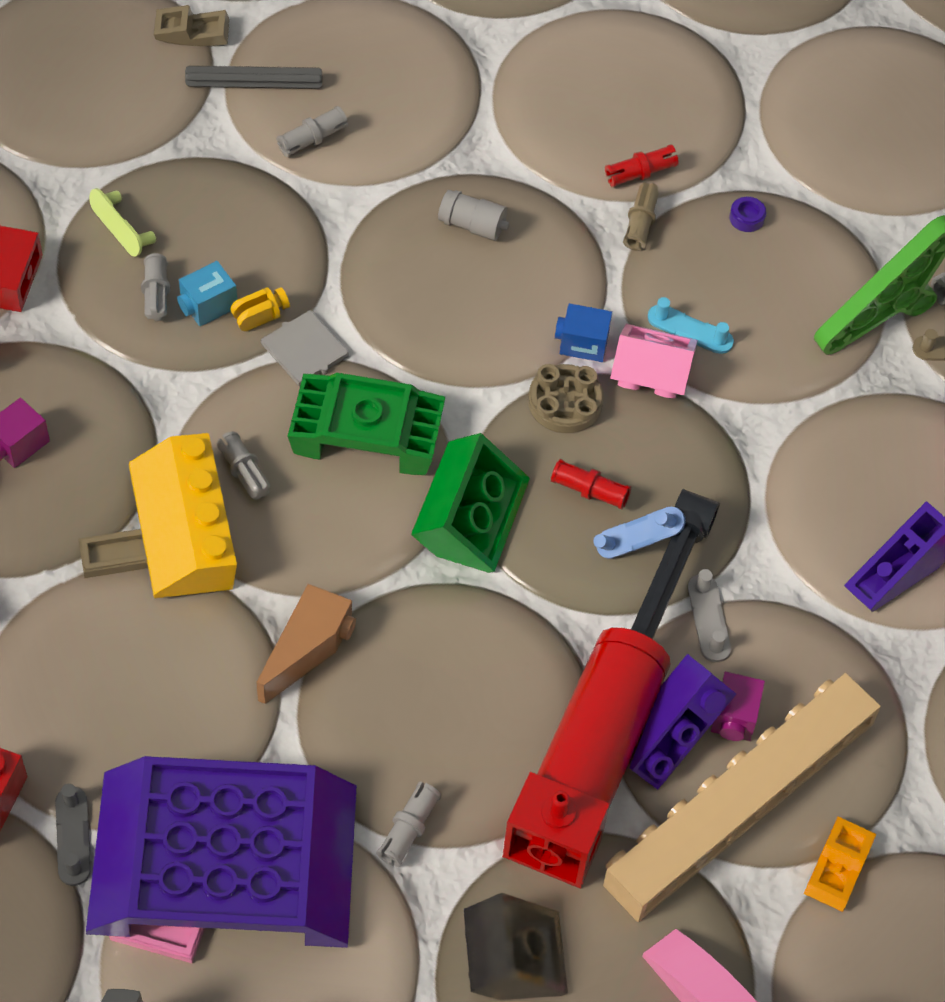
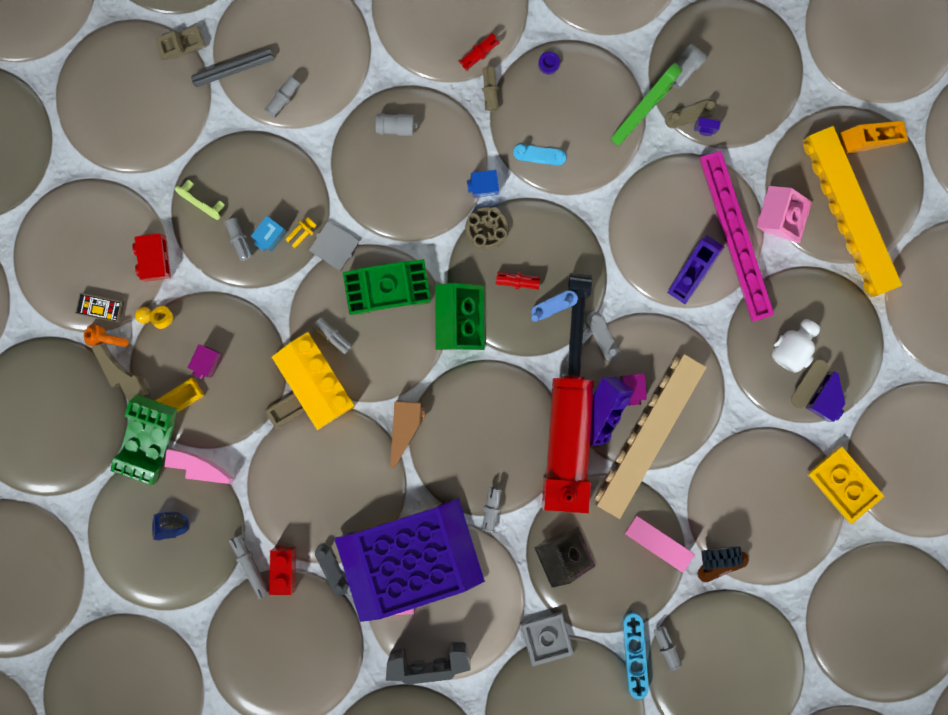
camera: 15 degrees left, 30 degrees up
(653, 360) = (527, 187): bright pink slope -> none
(840, 864) = (706, 453): light orange slope -> none

